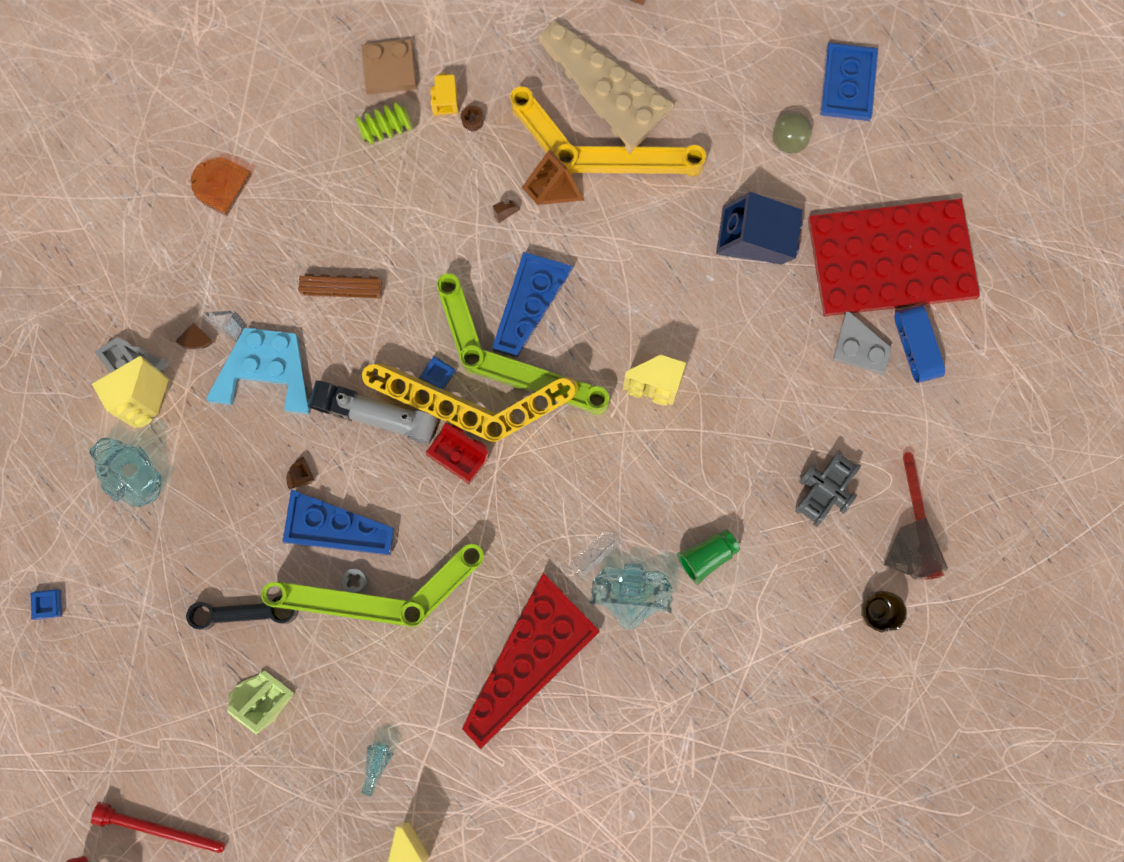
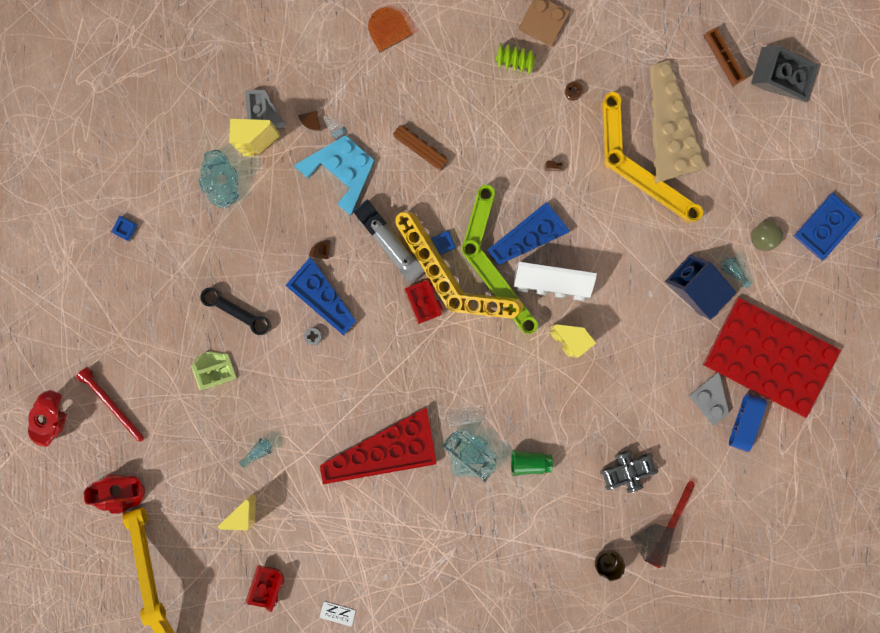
camera: 30 degrees right, 10 degrees up
(376, 607) = (315, 362): lime piece -> none
(444, 95) = (566, 64): yellow brick -> none
(551, 182) = (593, 168): dark orange slope -> none
(590, 330) = (553, 280): none -> white slope
(782, 190) = (732, 267): none -> clear light blue cone

